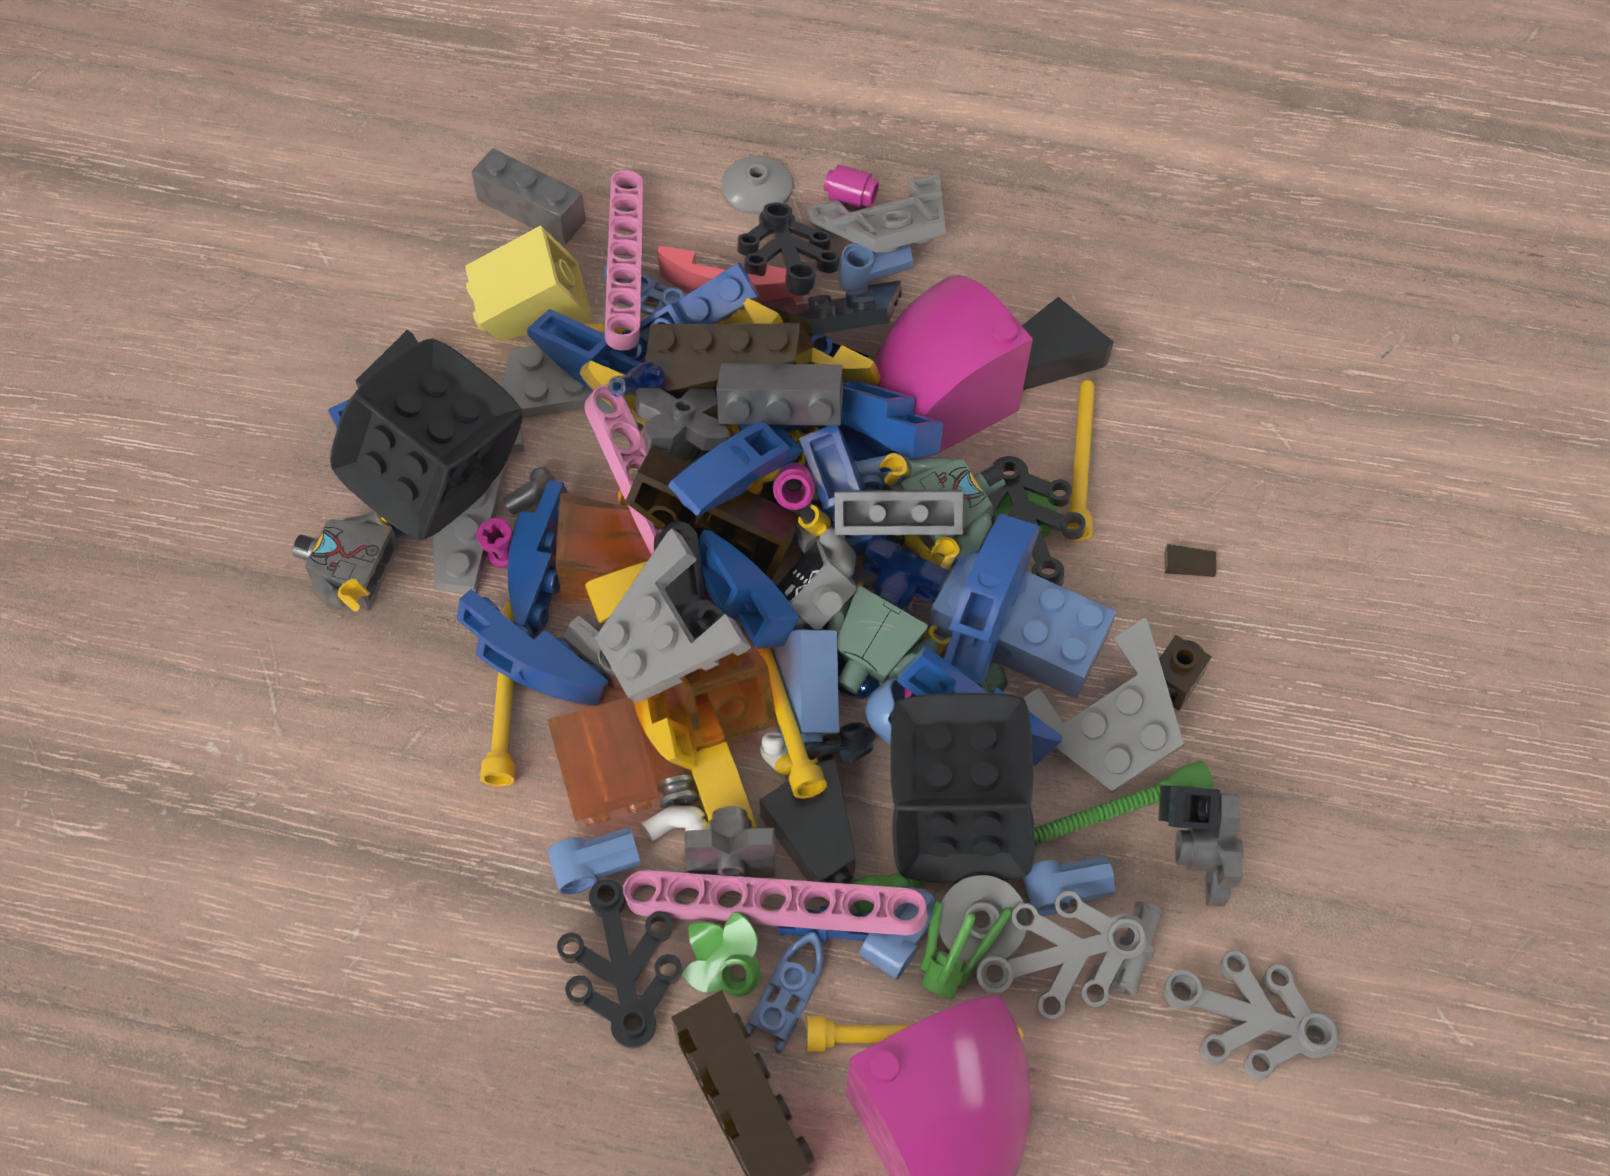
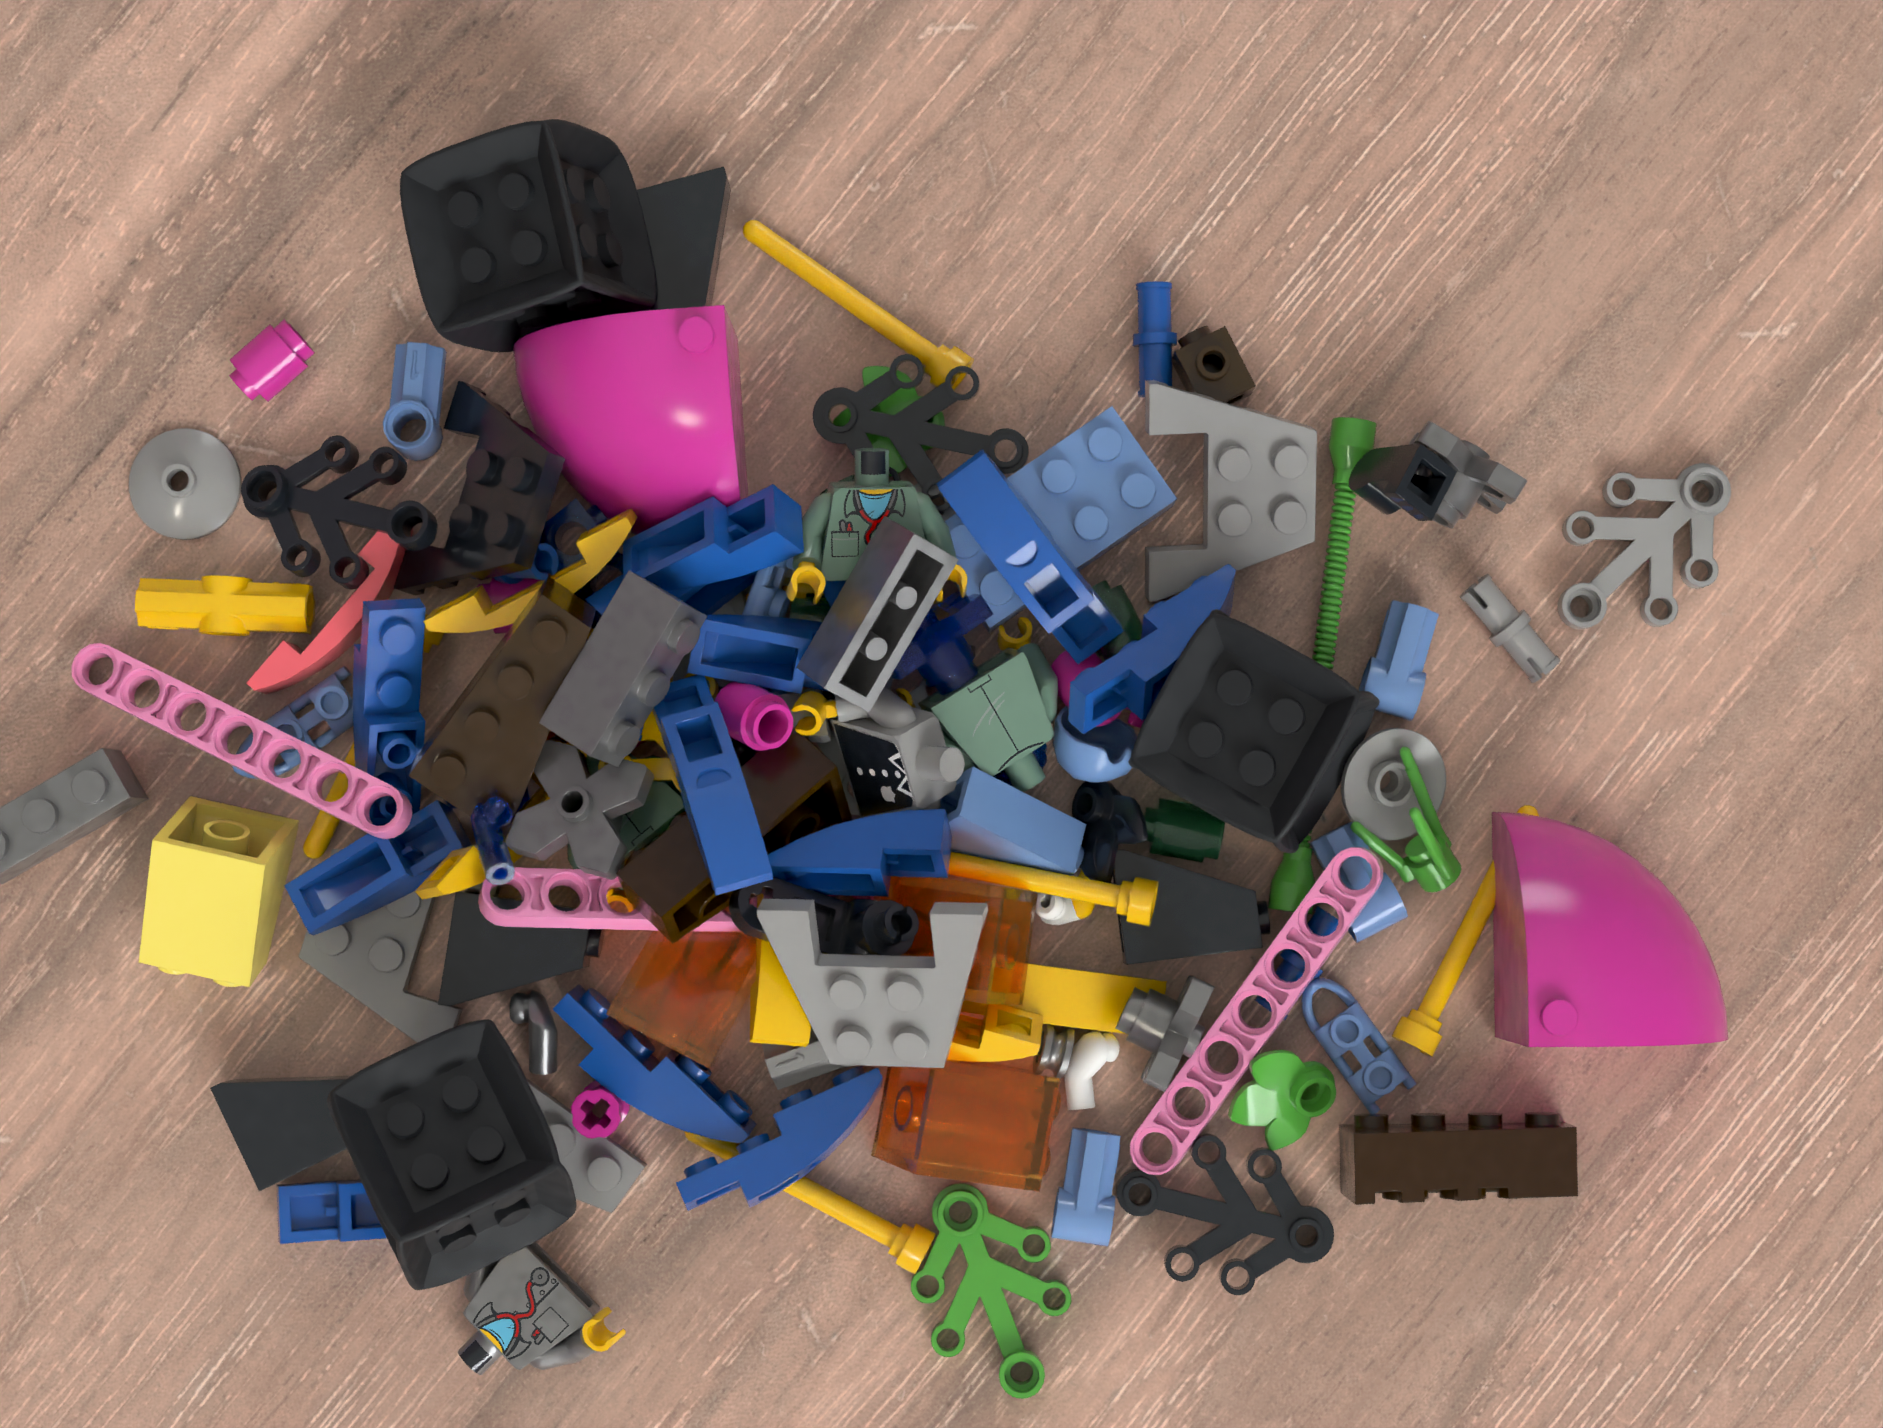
camera: 55 degrees left, 25 degrees up
(494, 827) = (986, 1279): none -> bright green plant
(571, 451) = (498, 958): none -> black slope
(698, 224) = (225, 605): none -> yellow piece
(869, 800) = (1183, 831): none -> clear green brick
(889, 224) = (378, 349): light grey wing -> none
(1012, 236) = (525, 233): none -> black piece
(1071, 952) = (1482, 711): light grey plant -> none
(1183, 625) = (1154, 333): none -> blue pin
(1189, 561) = (1068, 258): dark brown piece -> none

